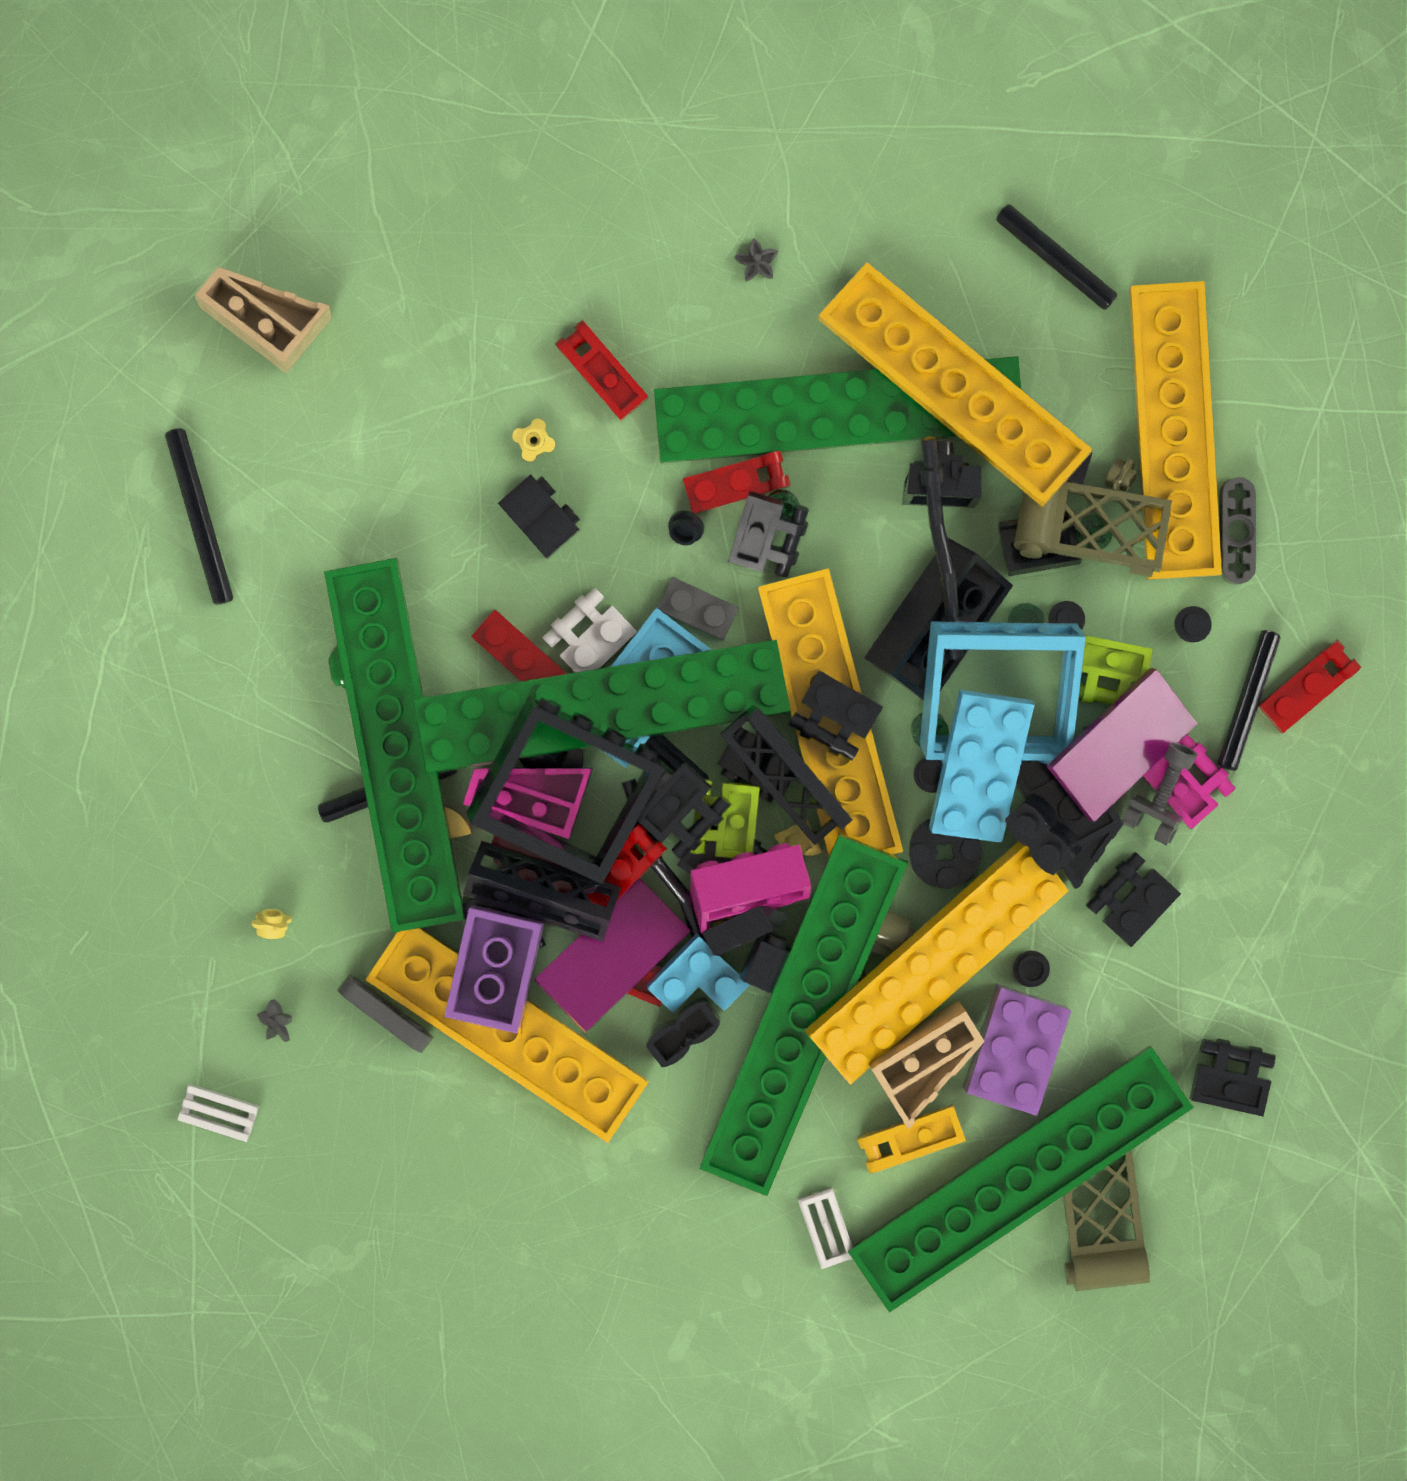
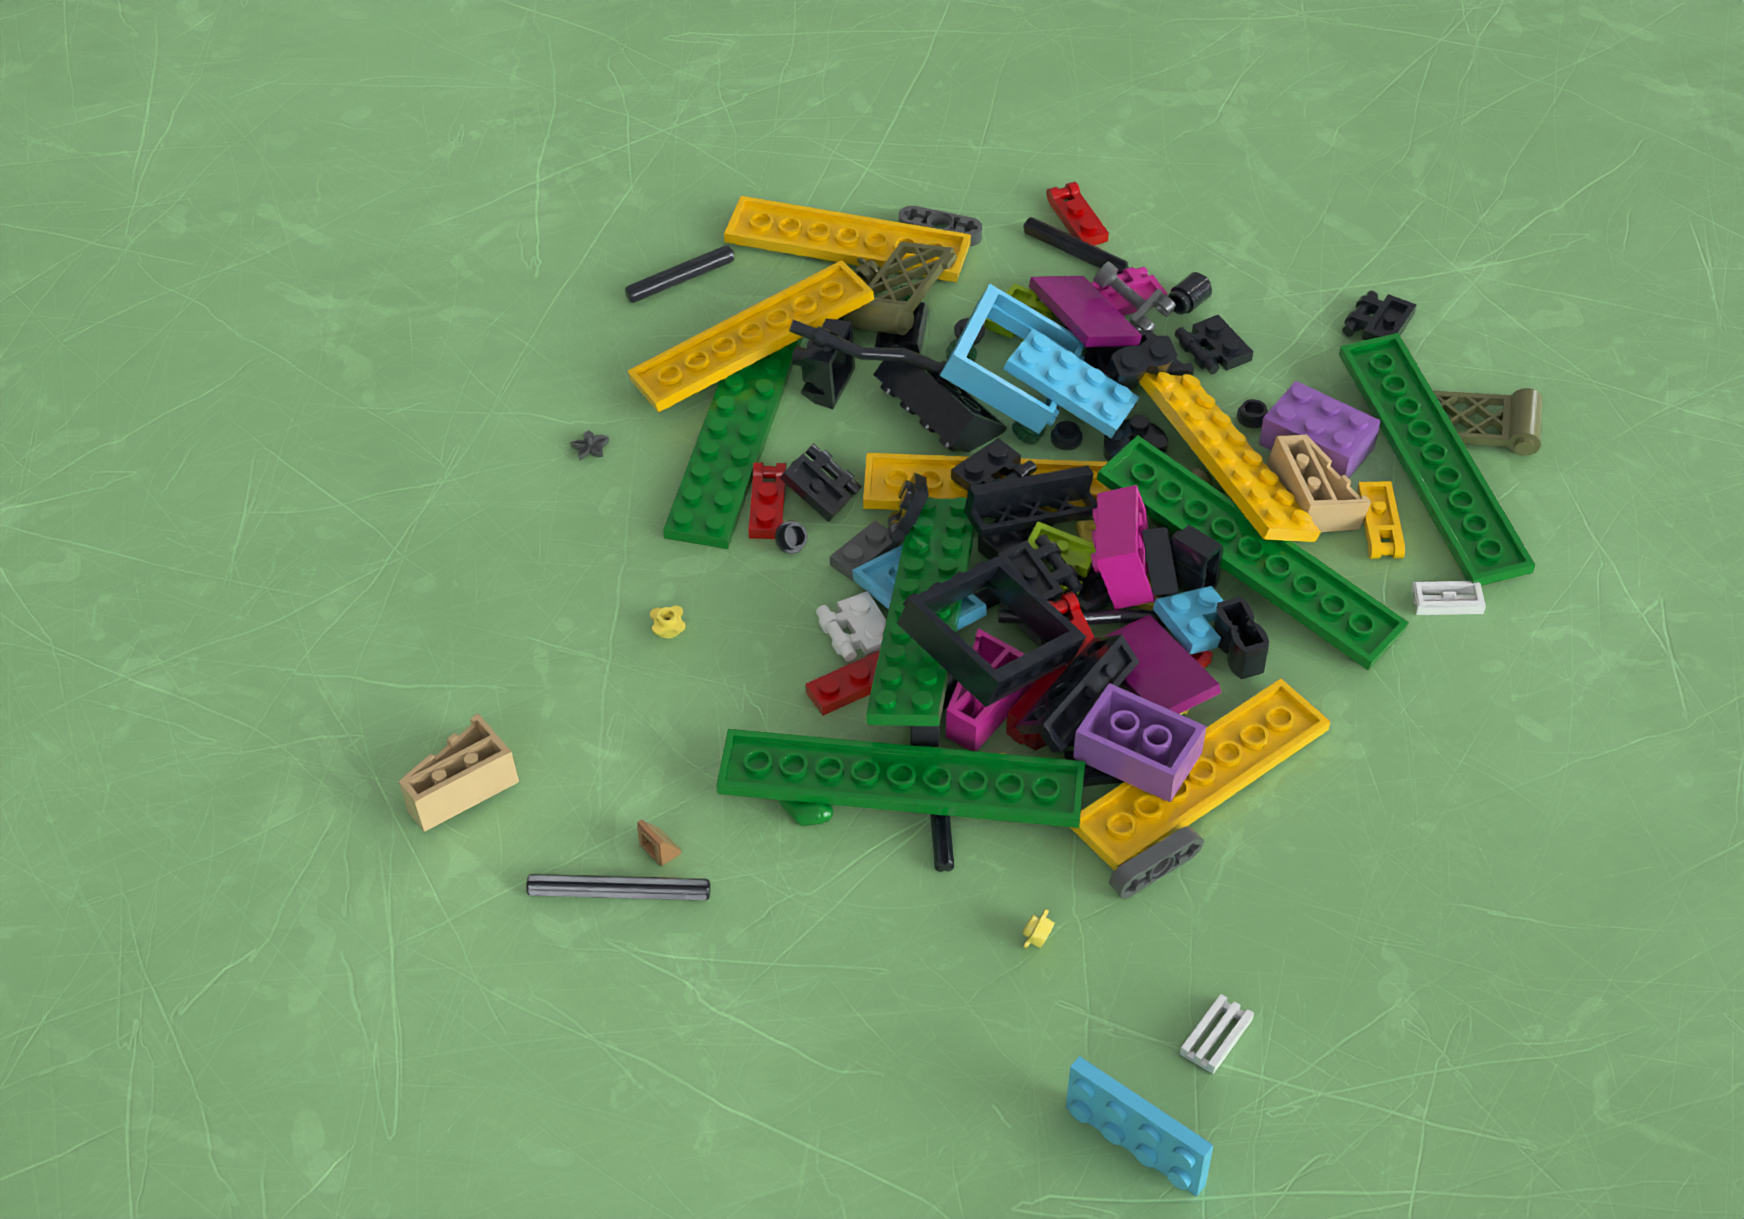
camera: 70 degrees left, 40 degrees down
(79, 1064) = (1138, 1127): none -> medium azure plate
(260, 535) = (656, 843): none -> medium nougat slope
(275, 1021) = (1137, 955): dark grey plant -> none
(540, 515) = (736, 630): black brick -> none
(602, 371) = (629, 559): red plate -> none
(742, 644) = (913, 498): none -> black plate
(1193, 624) = (1002, 264): black plate -> none
(1203, 854) = (1190, 293): none -> black brick

